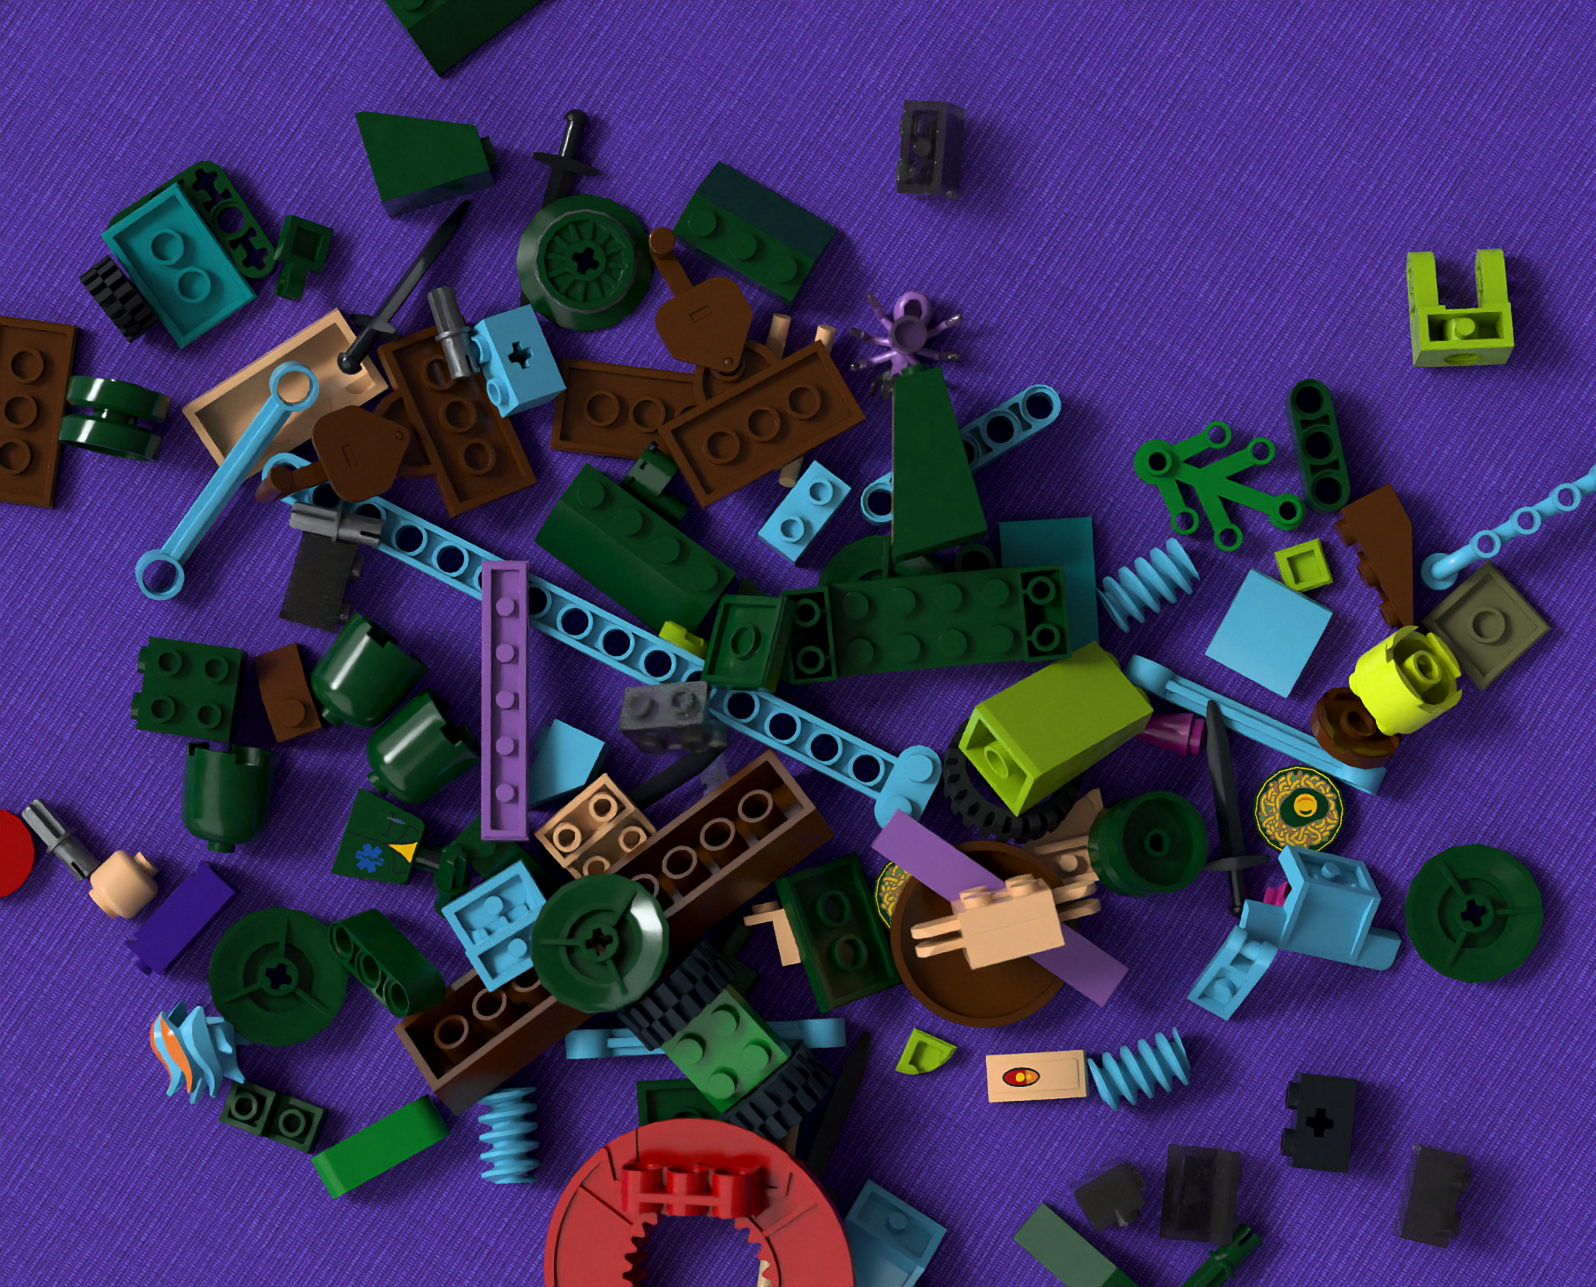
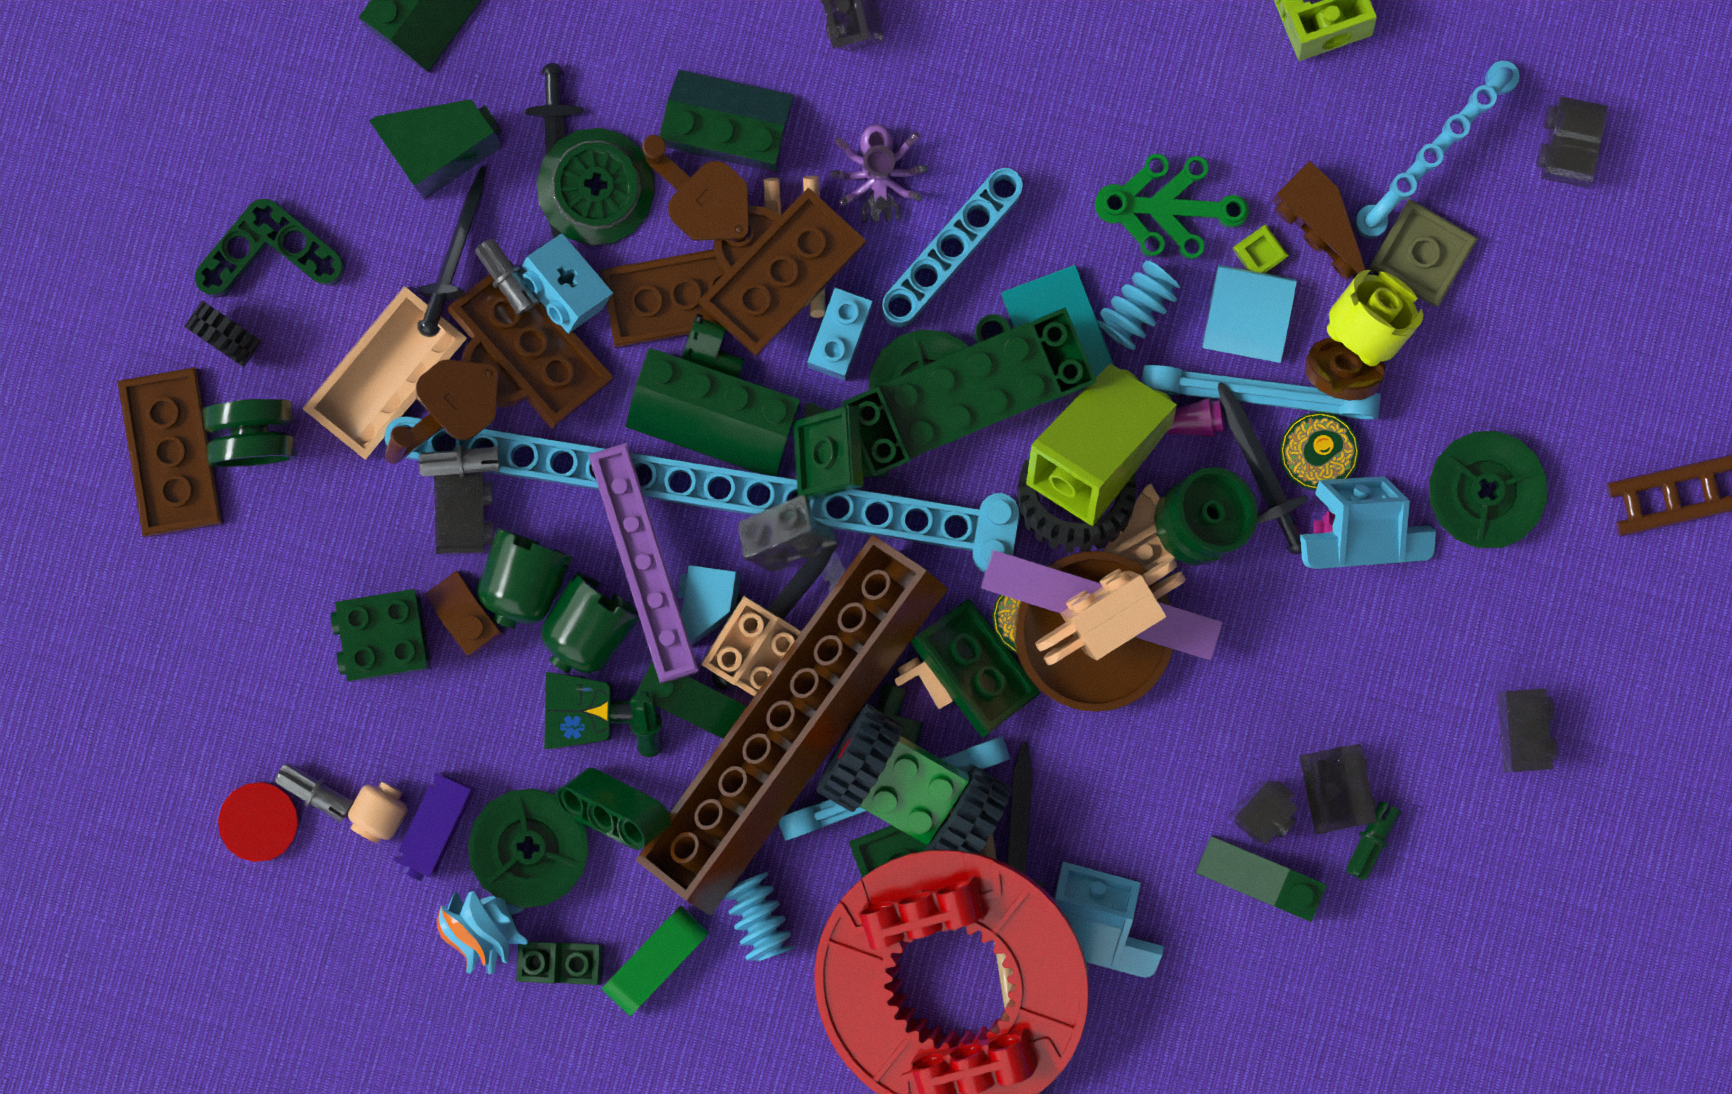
camera: 15 degrees left, 0 degrees up
(178, 265) = (263, 291): teal tile -> none
(226, 480) = (358, 455): medium azure piece -> none
(228, 794) = (439, 711): dark green cylinder -> none
(303, 250) = (362, 247): dark green plate -> none
(497, 923) = (702, 746): medium azure slope -> none
(571, 927) = (757, 727): dark green piece -> none
(684, 640) = (770, 467): lime tile -> none
(924, 1053) = (1076, 745): lime tile -> none
(931, 477) = (934, 268): dark green slope -> none
(1037, 1075) = (1174, 733): light nougat slope -> none
(1141, 1070) = (1258, 702): medium azure piece -> none
(1232, 973) = (1307, 599): medium azure plate -> none
(1324, 425) = (1241, 131): dark green beam -> none
(1336, 1102) = (1432, 714): black brick -> none

